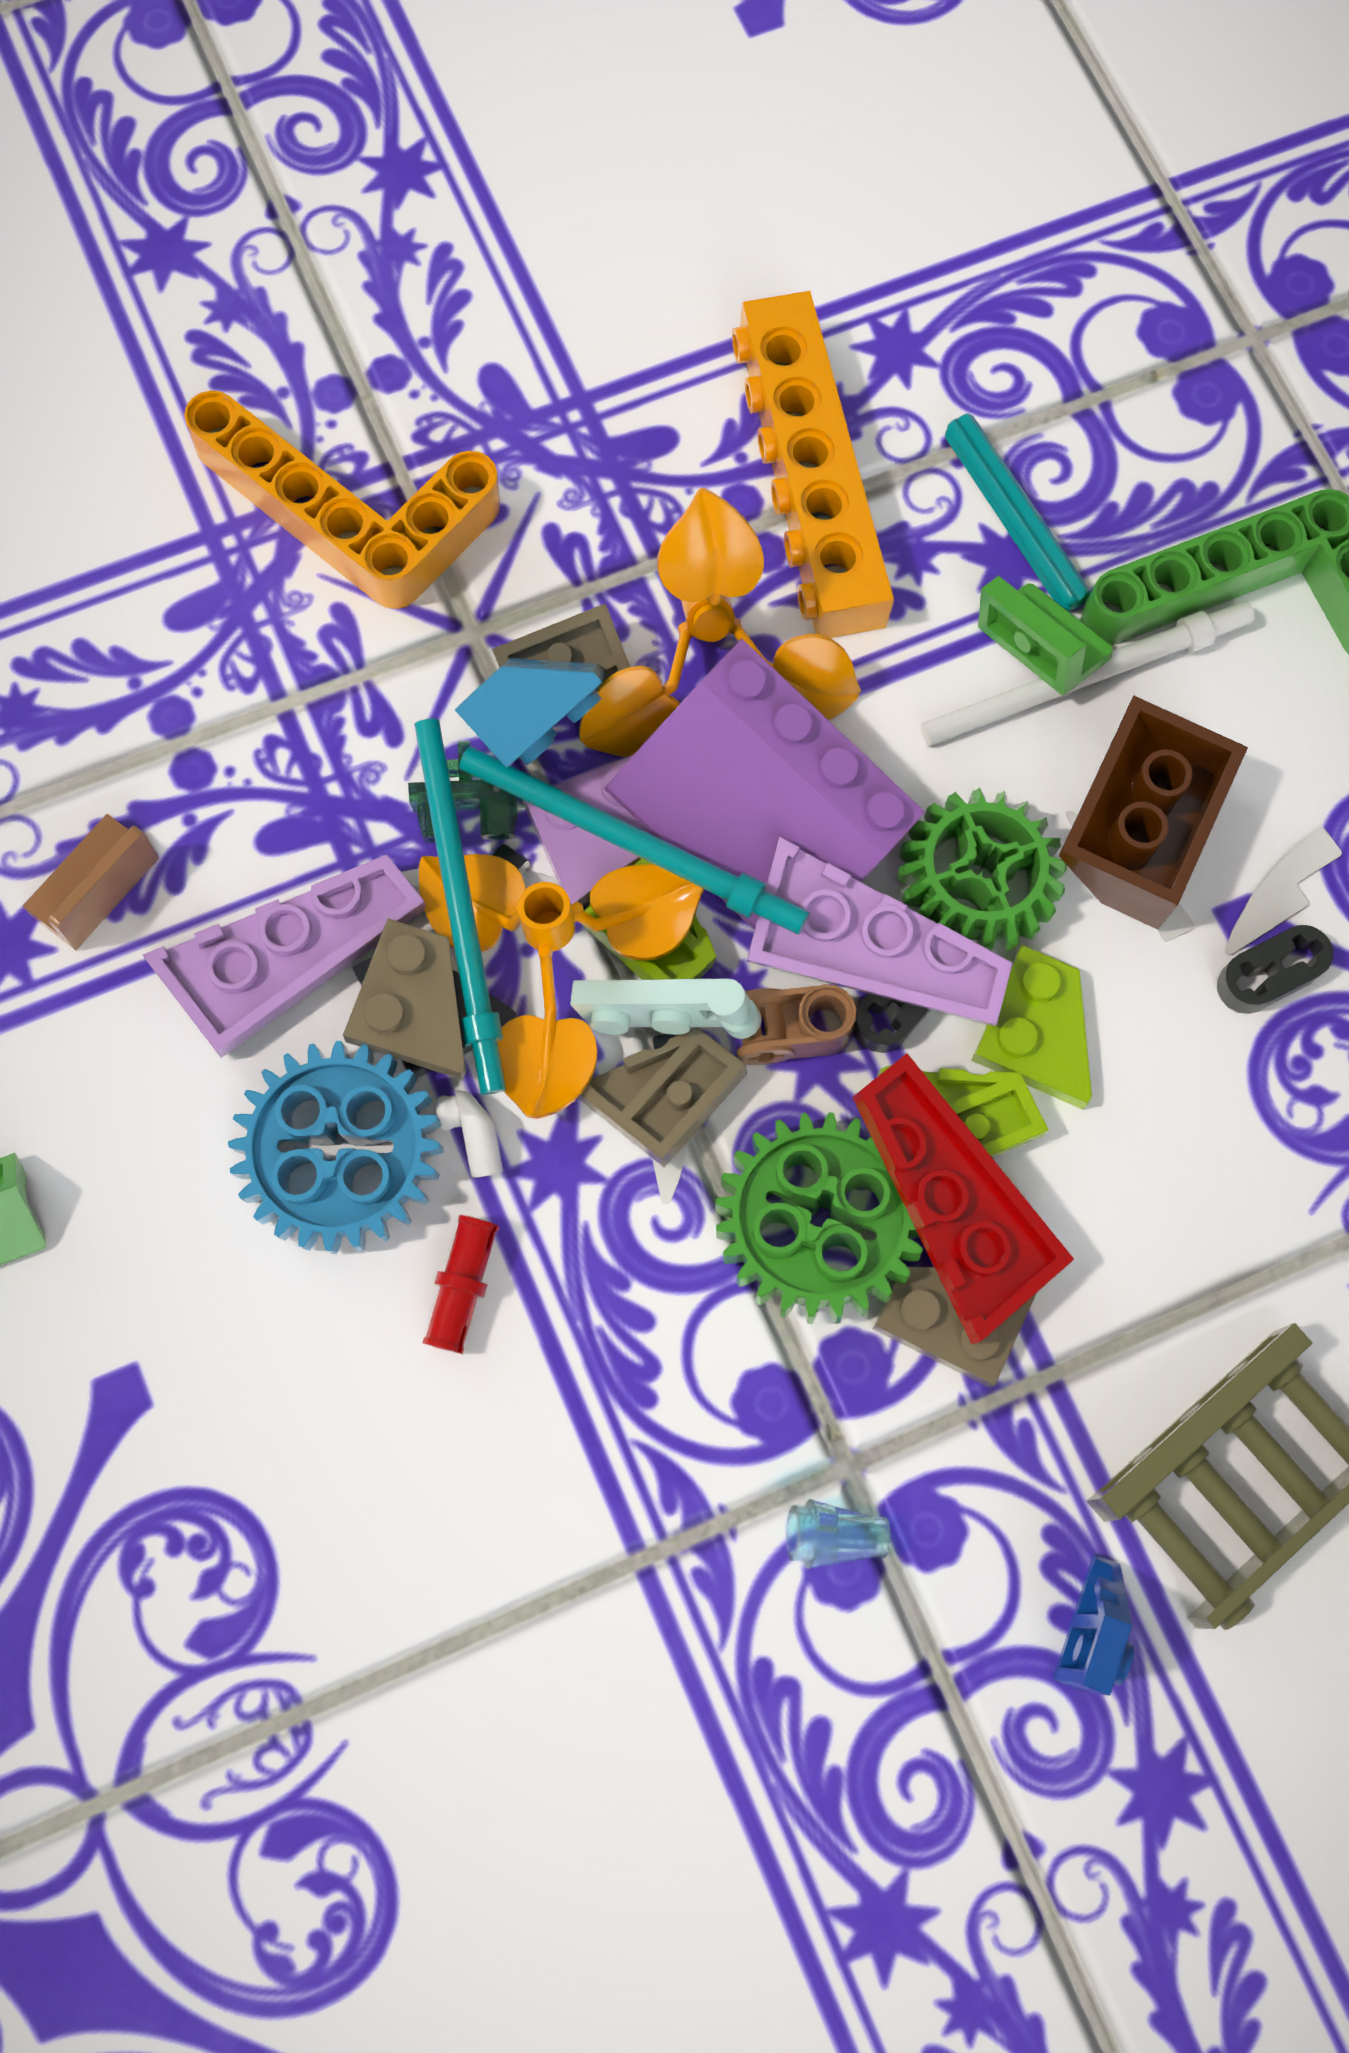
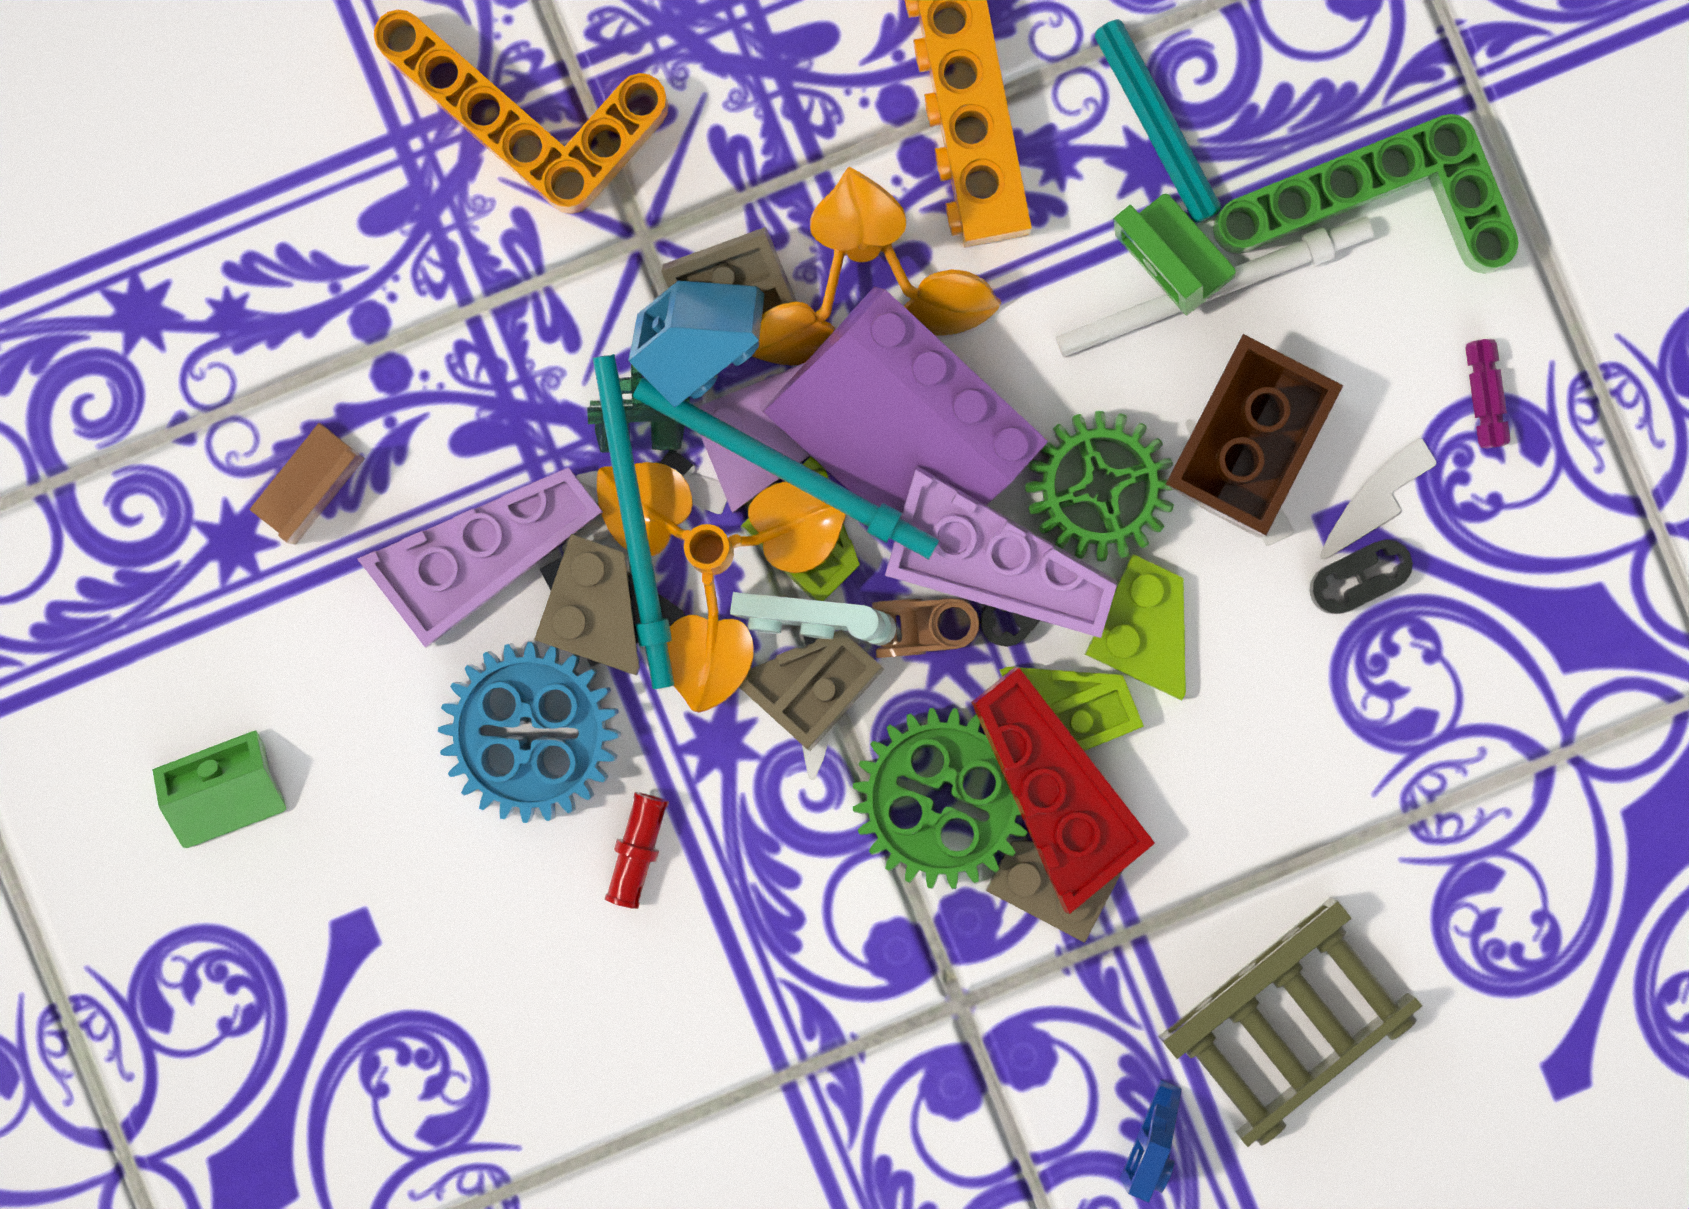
camera: 10 degrees right, 15 degrees up
(477, 1130) = (649, 715): white arm -> none
(833, 1535) = (943, 1062): clear light blue cone -> none

